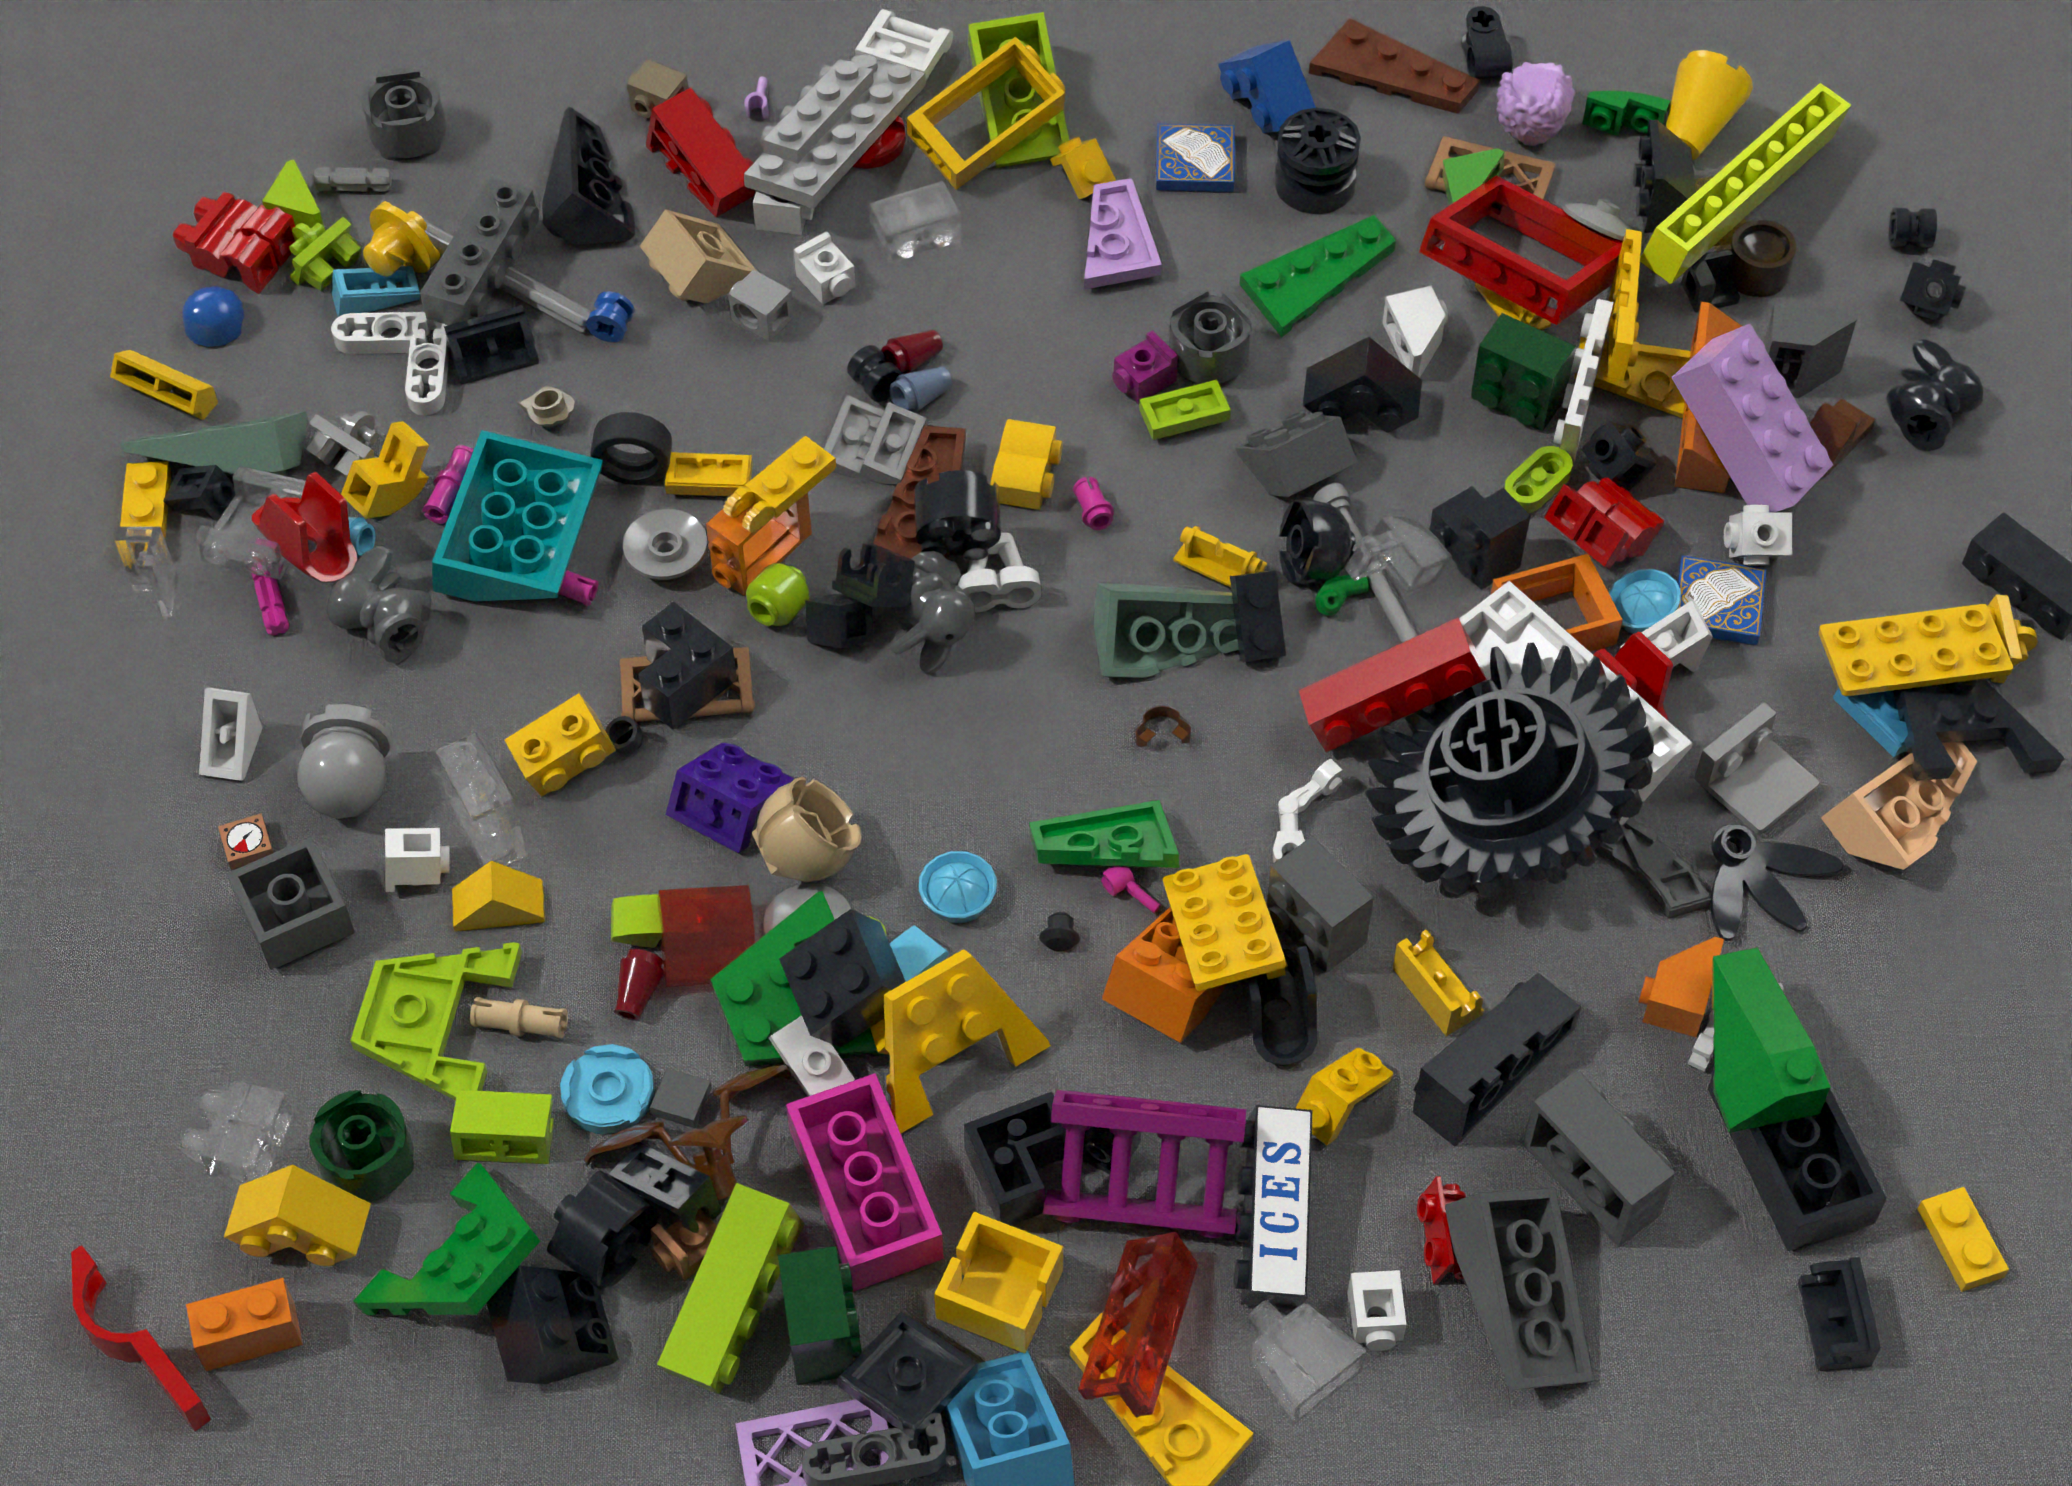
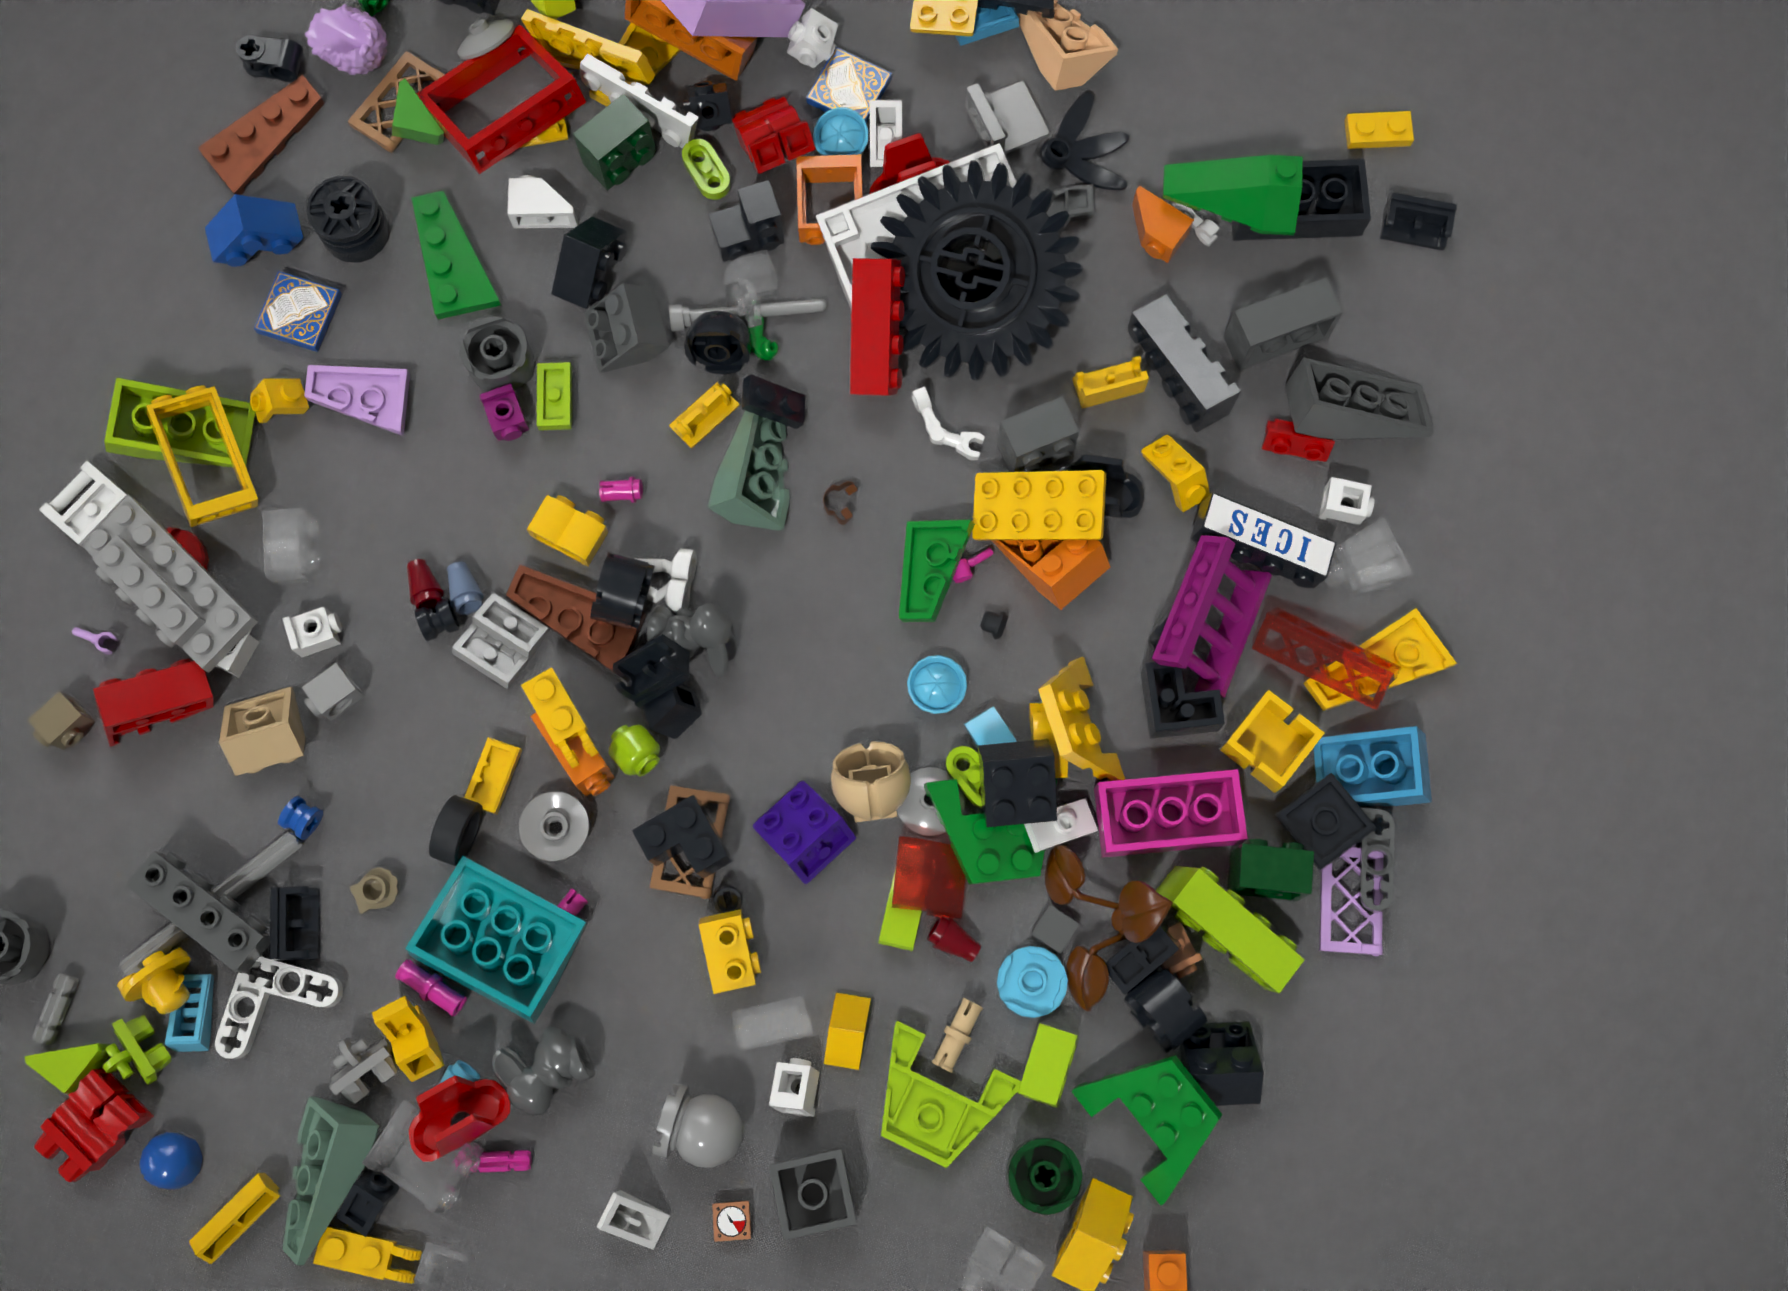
camera: 75 degrees left, 20 degrees up
(581, 191) = (151, 812): black wedge -> none

